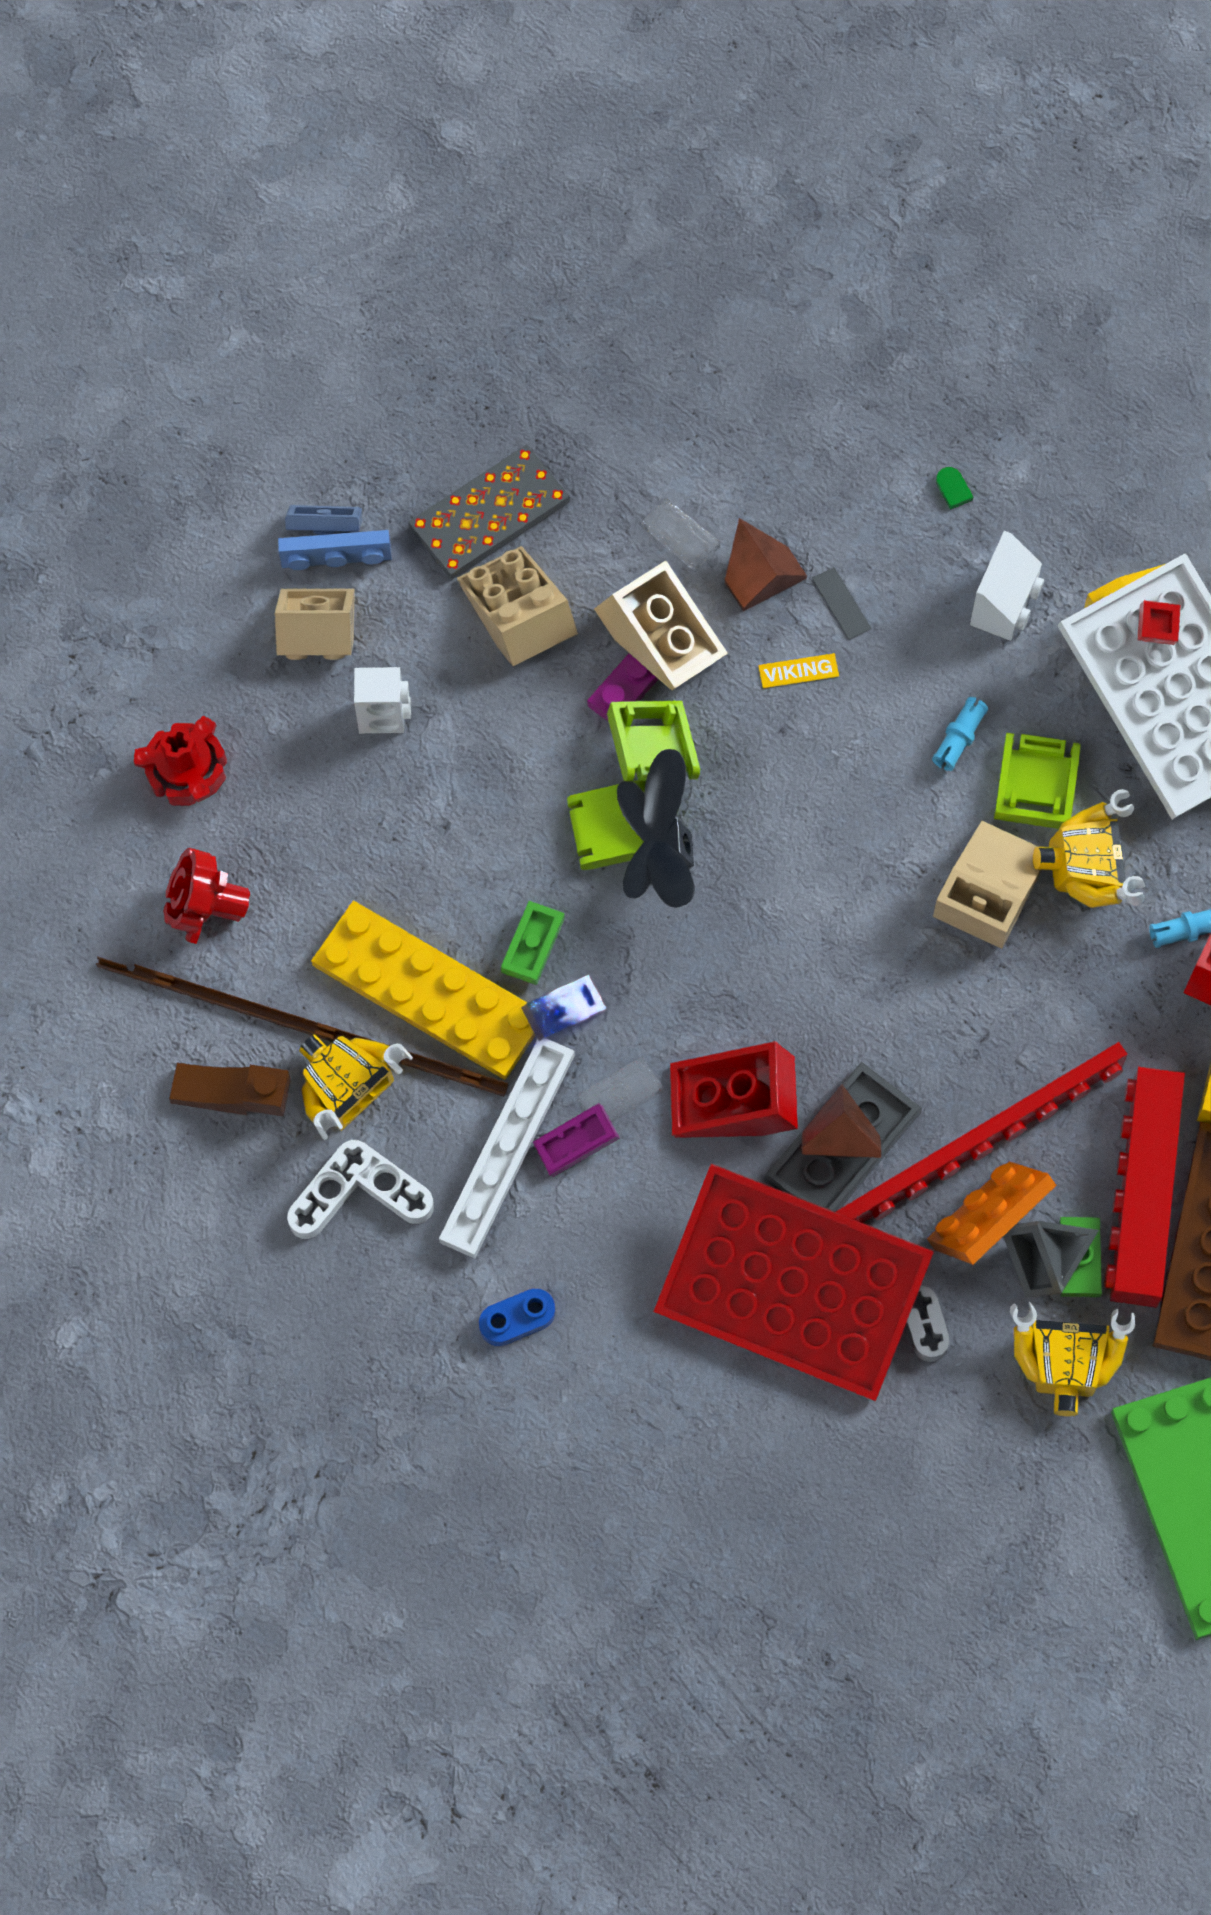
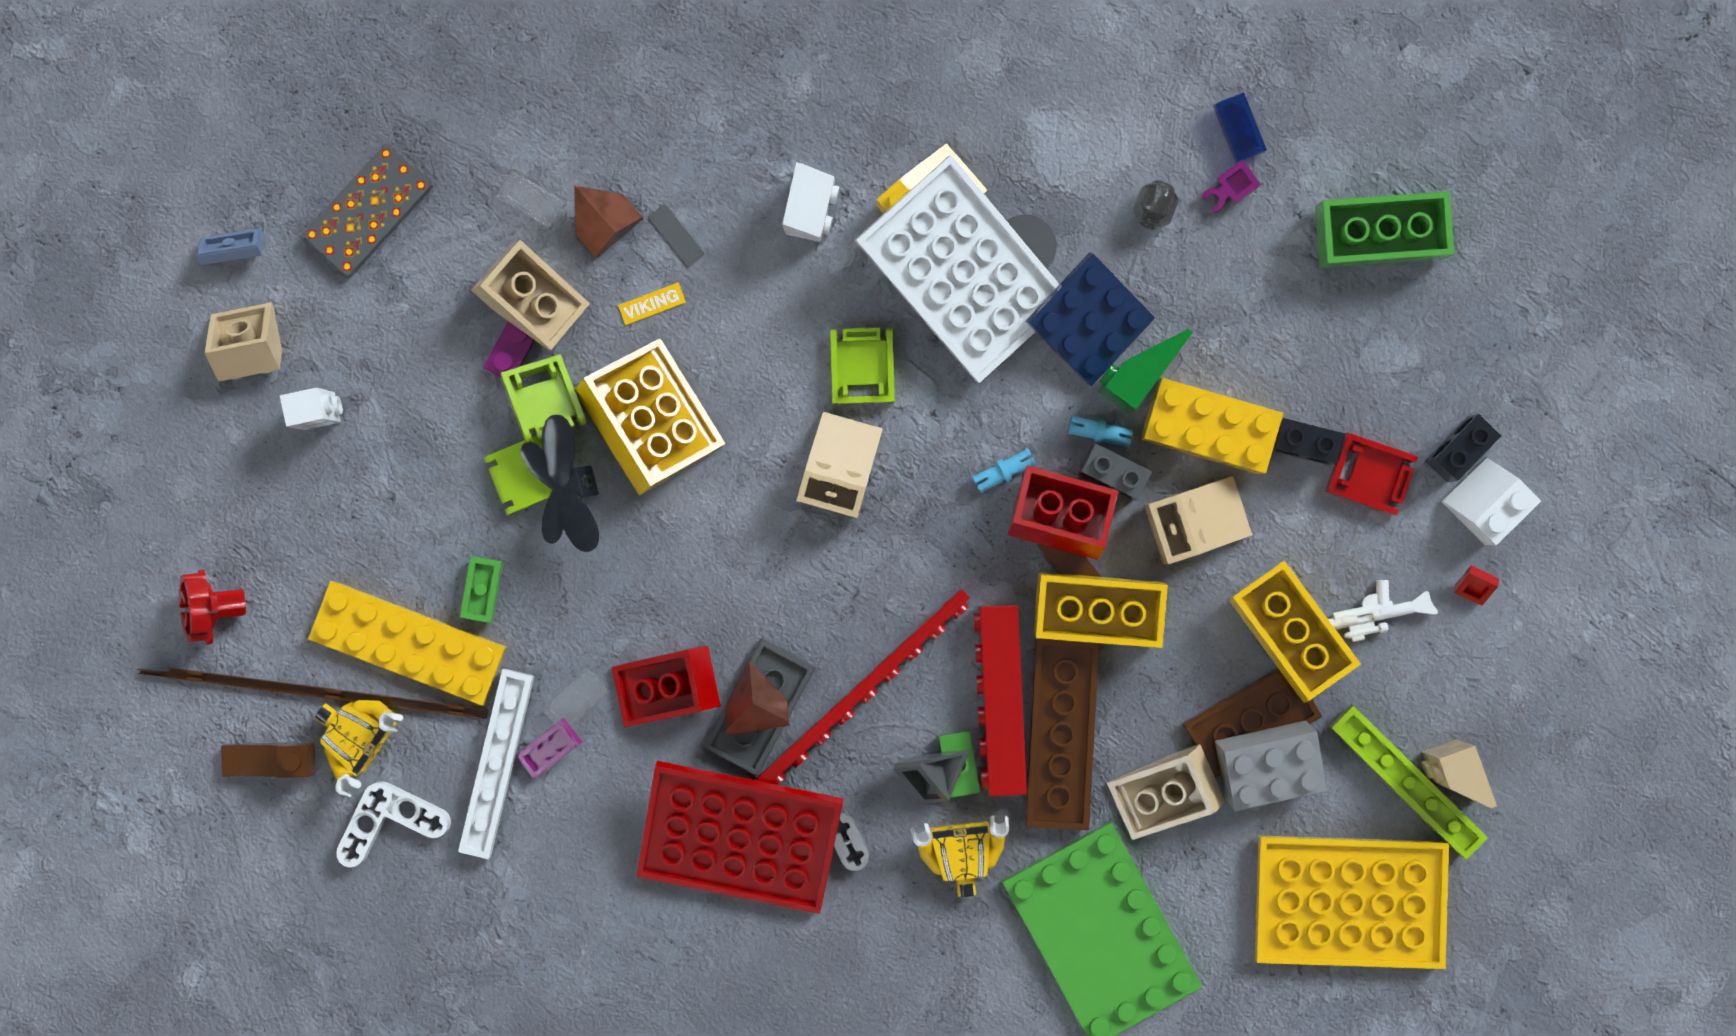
camera: 10 degrees left, 20 degrees up
(183, 760) = (165, 488): red piece -> none
(334, 549) = (246, 274): medium blue plate -> none
(518, 605) = (408, 294): tan slope -> none
(518, 1318) = (531, 897): blue plate -> none
(563, 1008) = (516, 643): clear blue plate -> none
(772, 787) = (648, 416): none -> yellow slope
(953, 487) = (750, 110): green piece -> none
(960, 734) = (793, 337): medium azure pin -> none
(990, 1212) = (883, 750): orange plate -> none
(1089, 857) = (914, 432): yellow torso -> none
(1159, 622) = (938, 225): red plate -> none

